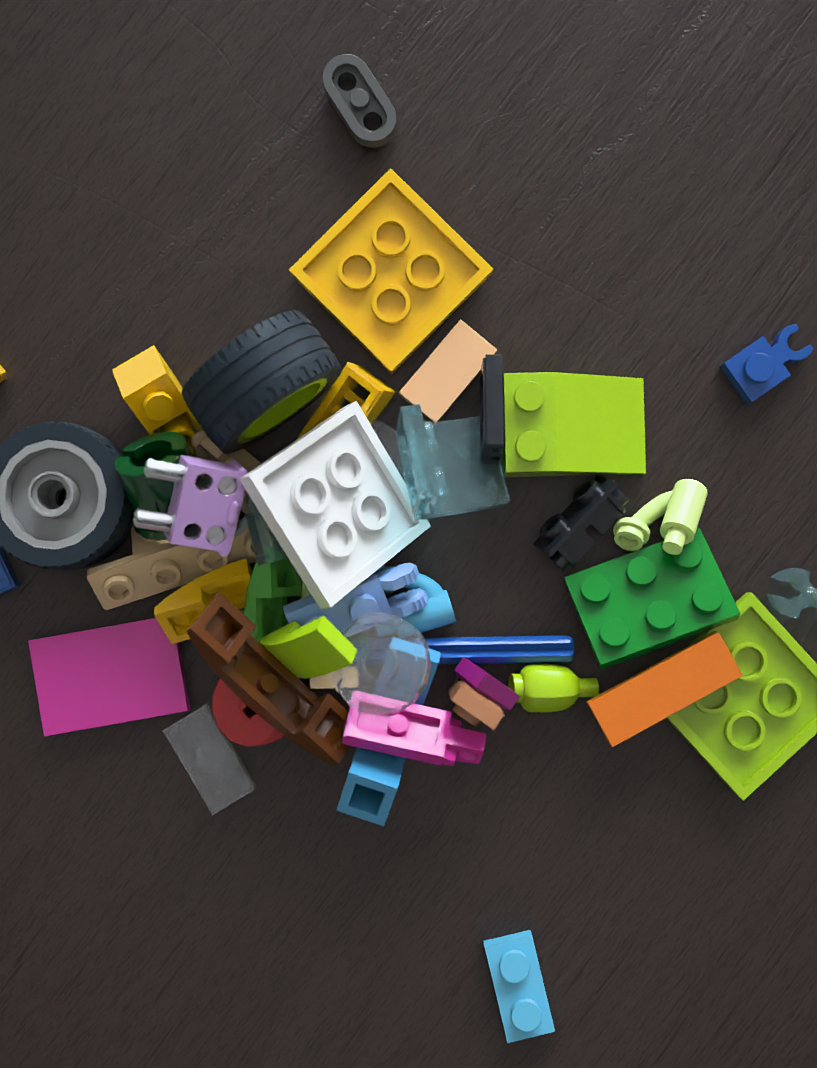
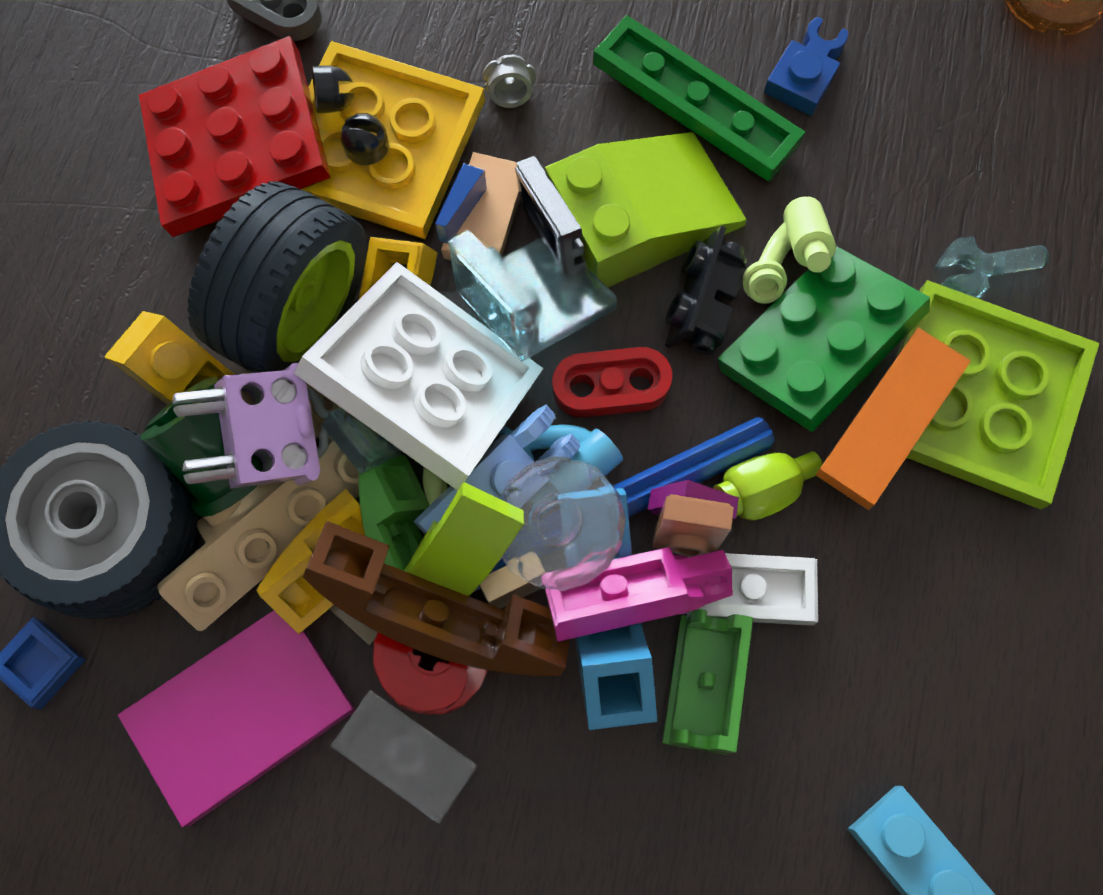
camera: 25 degrees left, 15 degrees down
(278, 221) = (231, 132): none -> red plate
(366, 221) = (326, 89): none -> black hinge
(372, 283) = (362, 145): none -> black hinge
(431, 362) = (460, 202): none -> blue piece
(435, 809) = (708, 682): none -> bright green hinge
(476, 559) = (610, 378): none -> red plate
(506, 759) = (770, 590): none -> white hinge
(518, 267) = (509, 81): none -> light grey plate
(659, 351) = (698, 98): none -> green plate

